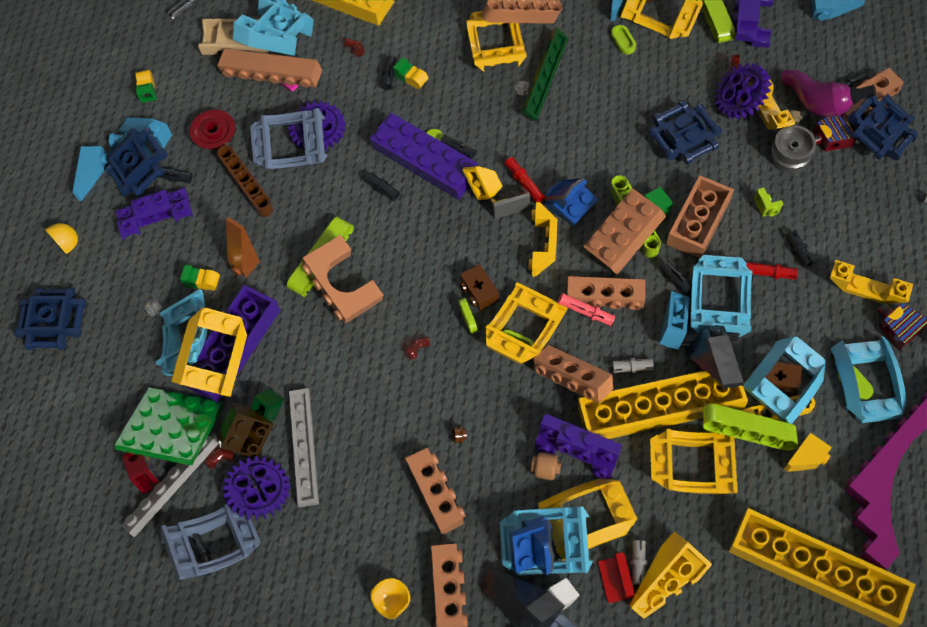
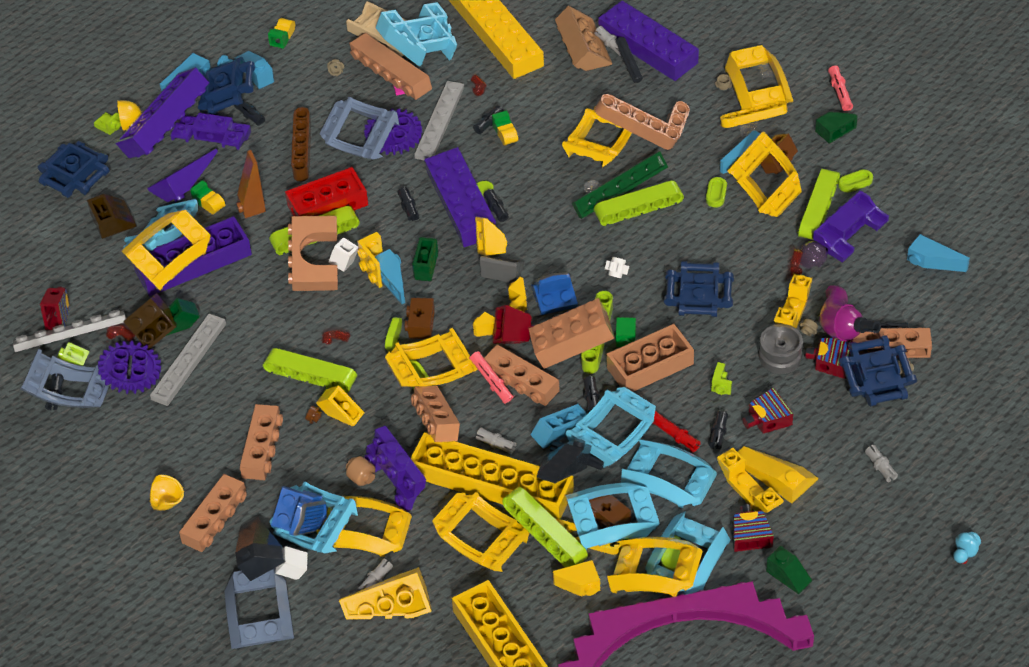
camera: 30 degrees right, 15 degrees down
(49, 254) = (108, 123): none -> lime bracket
(98, 220) = (162, 113): none -> dark purple brick
(122, 345) = (110, 215): none -> dark brown slope
(153, 308) = (155, 201): clear plate -> none
(163, 278) = (182, 180): none -> dark purple wedge
(169, 426) = (99, 288): green plate -> none
(192, 507) = (73, 354): none -> lime bracket
(212, 129) = (306, 91): dark red gear -> none
(218, 97) = (333, 70): none -> dark tan plate
(309, 219) = (327, 194): none -> red brick
(347, 96) = (439, 120): none -> light grey plate
(367, 265) = (343, 254): none -> white brick
(393, 258) = (368, 249): none -> yellow bracket
(417, 258) = (391, 273): none -> dark azure slope
(422, 392) = (309, 369): none -> lime beam
(441, 230) = (425, 259): none -> dark green brick
(476, 413) = (340, 406): none -> yellow slope
(520, 175) = (529, 253): red pin -> none
(567, 253) = (511, 326): none -> dark red torso
(572, 82) = (638, 202): none -> lime beam
(603, 149) = (616, 267): none -> white gear
(616, 578) = (349, 578): red panel -> none
(742, 91) = (776, 280): dark purple gear -> none
(745, 50) = (813, 255): none -> clear purple hair
(768, 320) = (643, 461): none -> medium azure wedge
(827, 210) = (768, 413): none -> dark red torso
(836, 419) = (625, 571): none -> yellow wedge
(877, 260) = (782, 476): none -> yellow wedge

